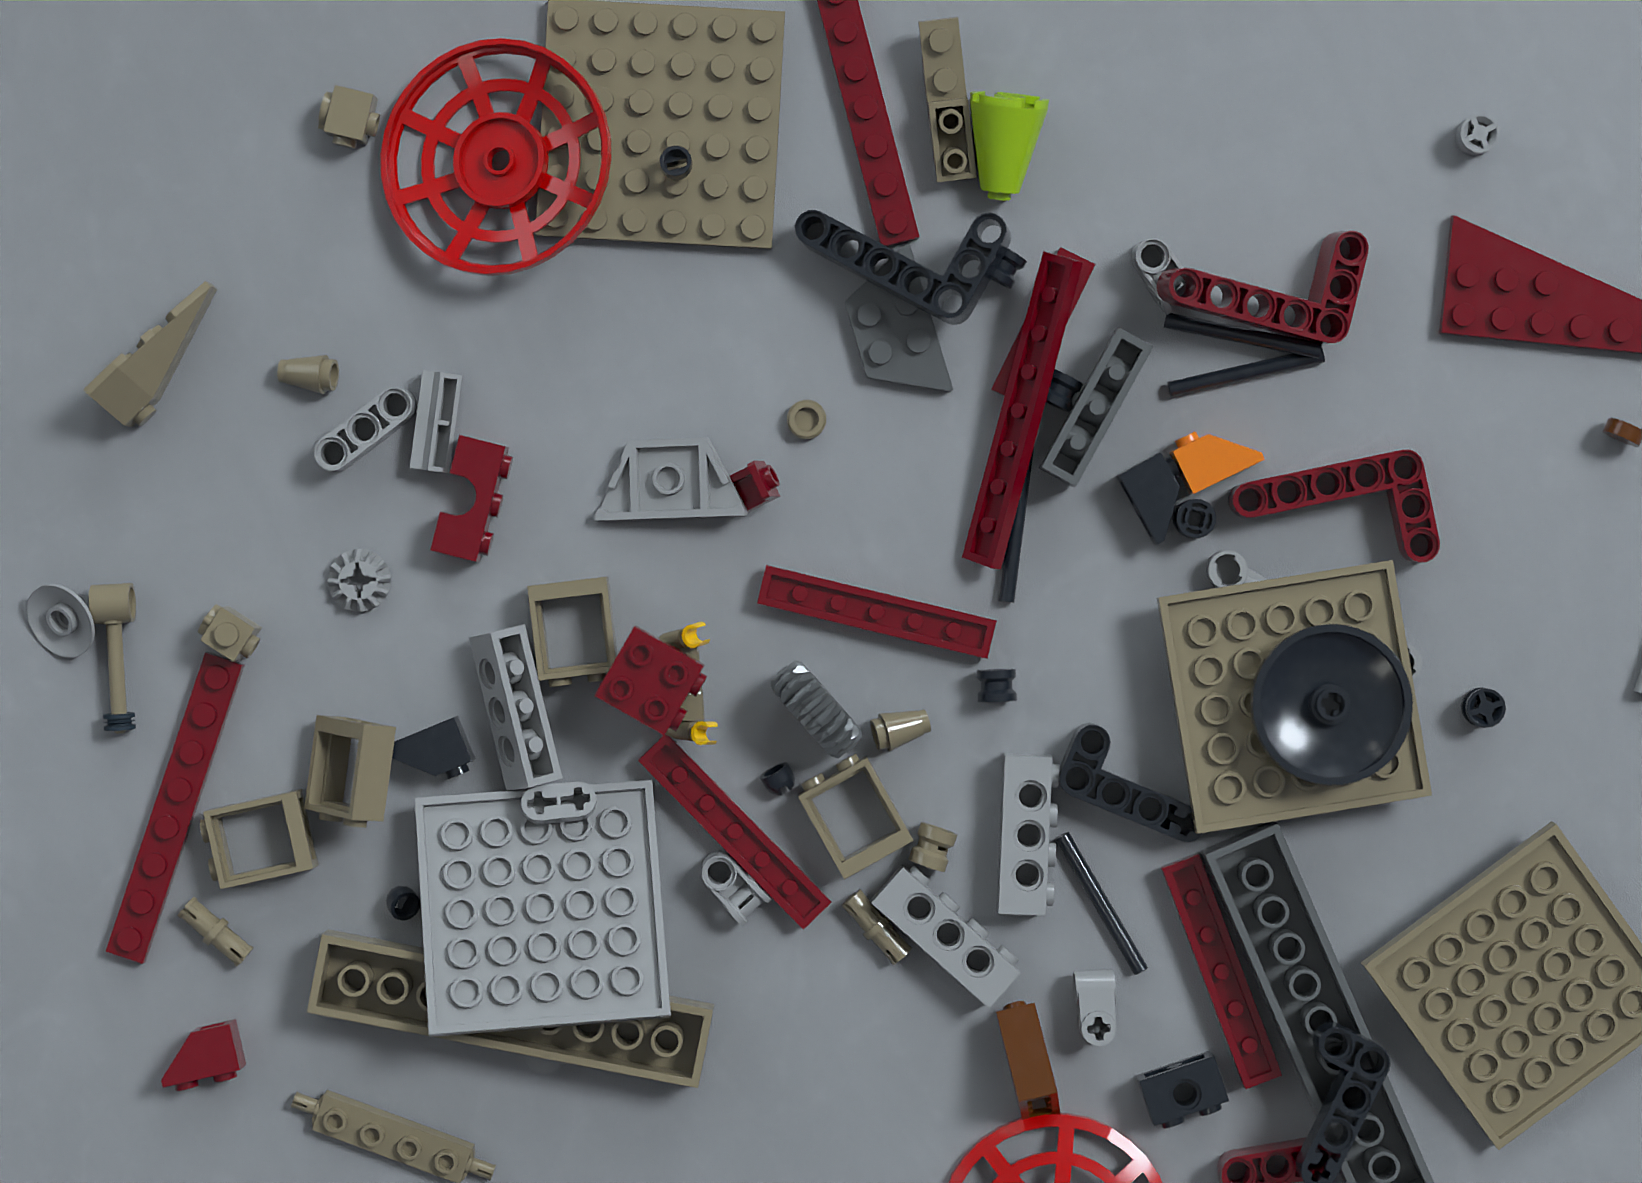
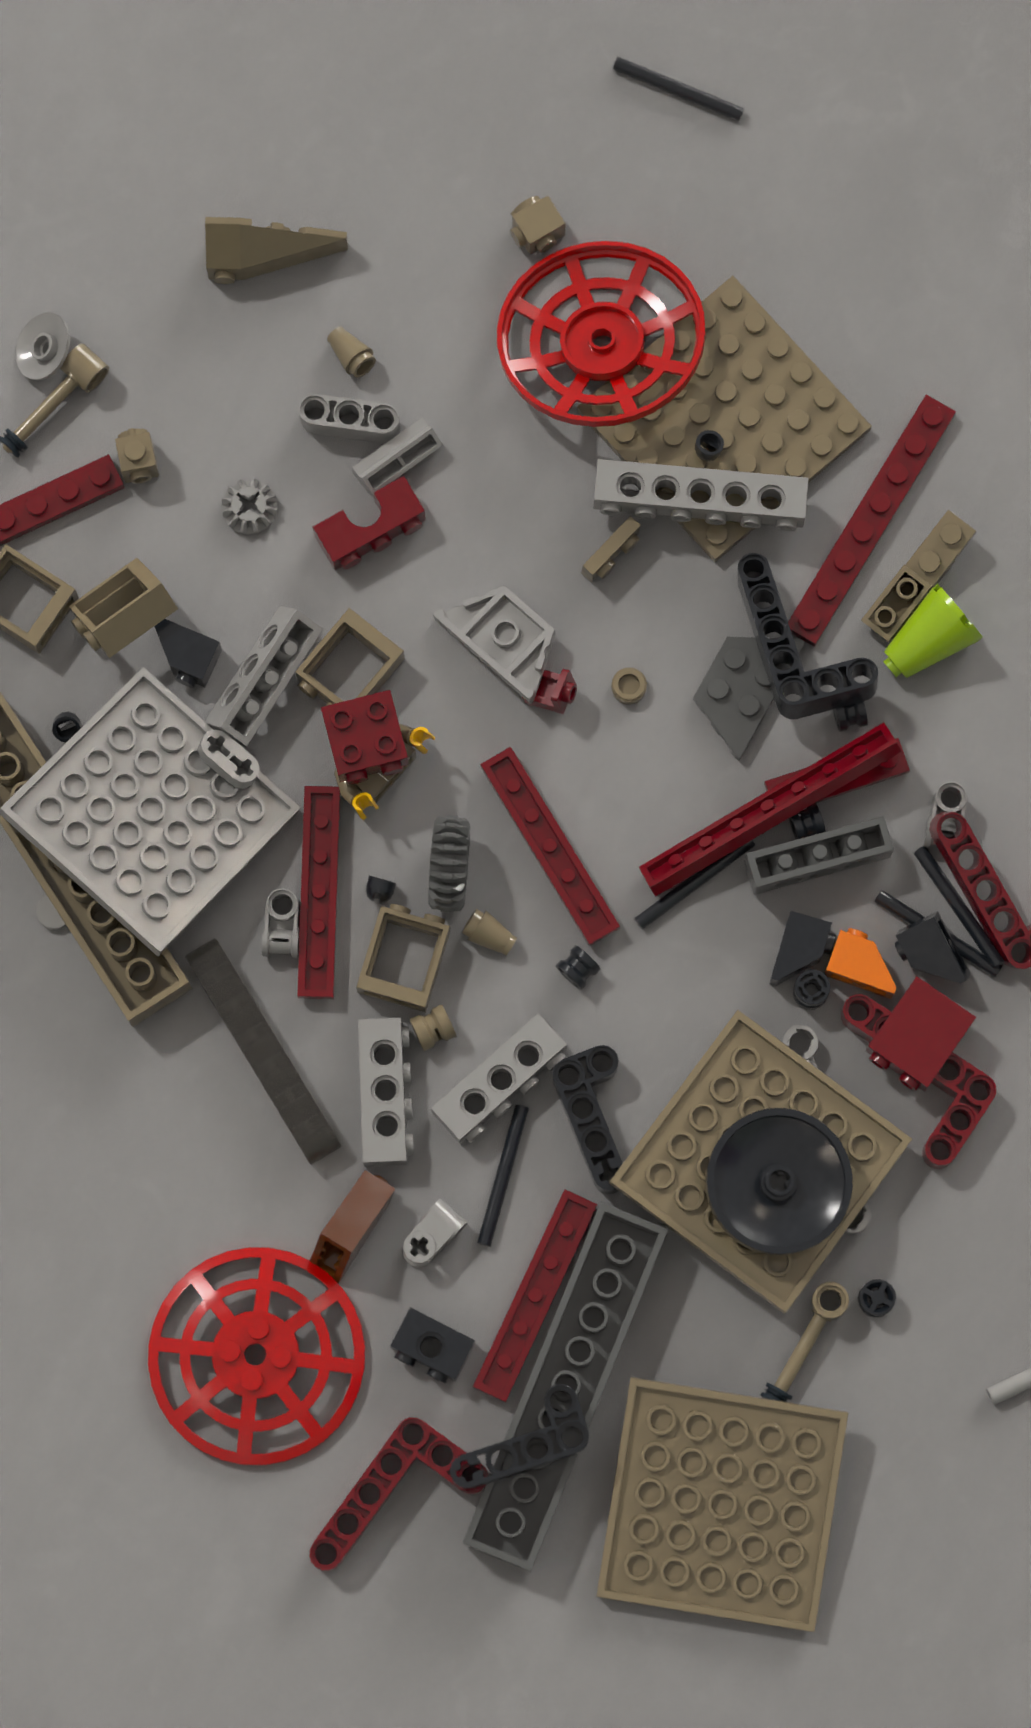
camera: 50 degrees right, 10 degrees down
(683, 308) = (602, 561): none -> dark tan plate
(779, 136) = (718, 484): none -> light grey brick
(820, 998) = (263, 1051): none -> clear smoke beam
(876, 927) = (345, 1043): dark tan pin -> none
(1257, 392) = (931, 949): none -> black slope
(1318, 471) = (919, 1035): none -> dark red panel
(1480, 856) = (821, 1316): none -> dark tan piece

